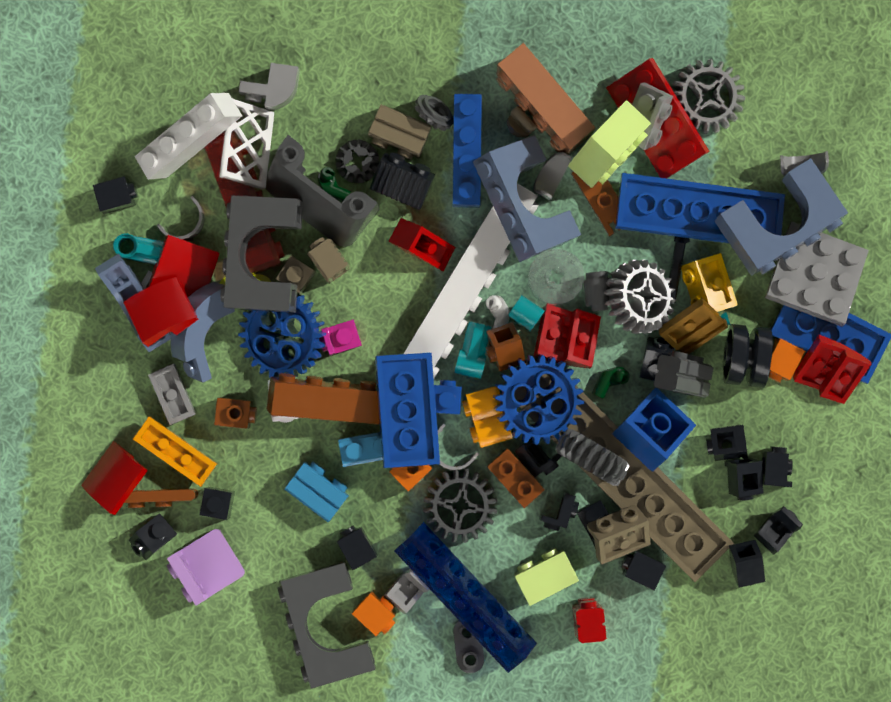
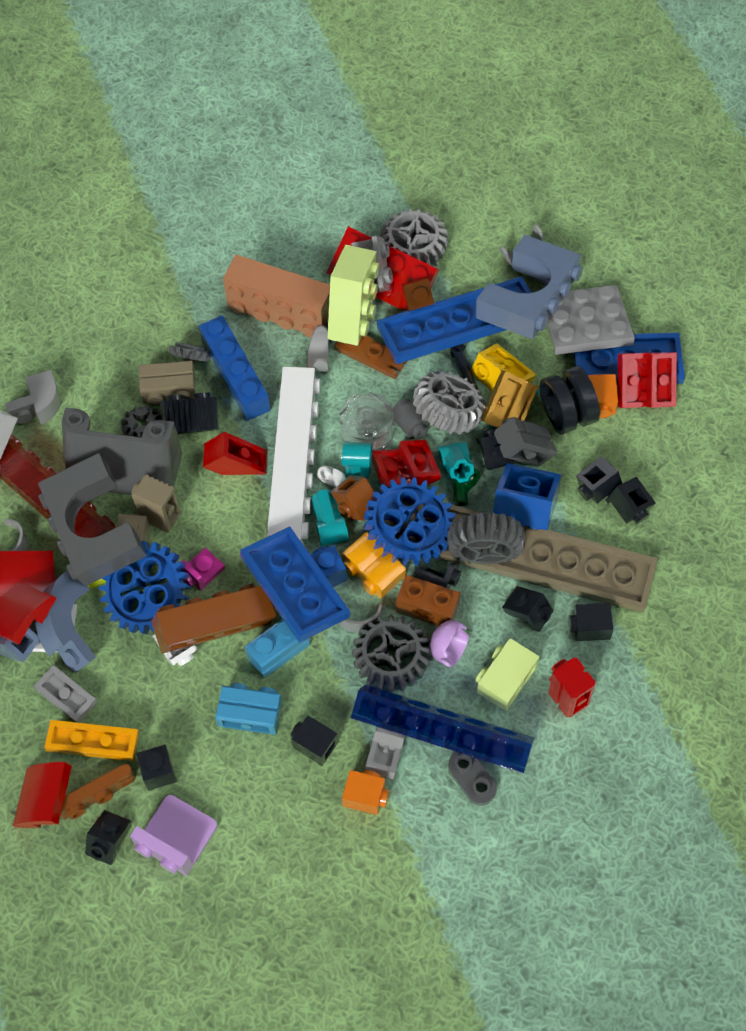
camera: 25 degrees left, 25 degrees down
(235, 413) = (134, 679): dark orange brick -> none
(265, 137) = (41, 469): white window -> none
(322, 663) = (339, 866): dark grey arch -> none
(410, 476) = (328, 646): orange brick -> none
(512, 523) = (449, 642): none -> lavender hair
(520, 124) = (269, 328): dark tan plate -> none
(525, 231) = (276, 359): sand blue arch -> none
(567, 509) = (491, 608): black bracket -> none
(614, 358) = (456, 460): none -> teal piece
(620, 533) = (552, 596): dark tan bracket -> none
(674, 168) = (417, 293): none -> reddish brown plate
(747, 563) = (680, 567): black brick -> none
(776, 467) = (655, 479): black brick -> none
(778, 529) = (688, 527): black bracket -> none

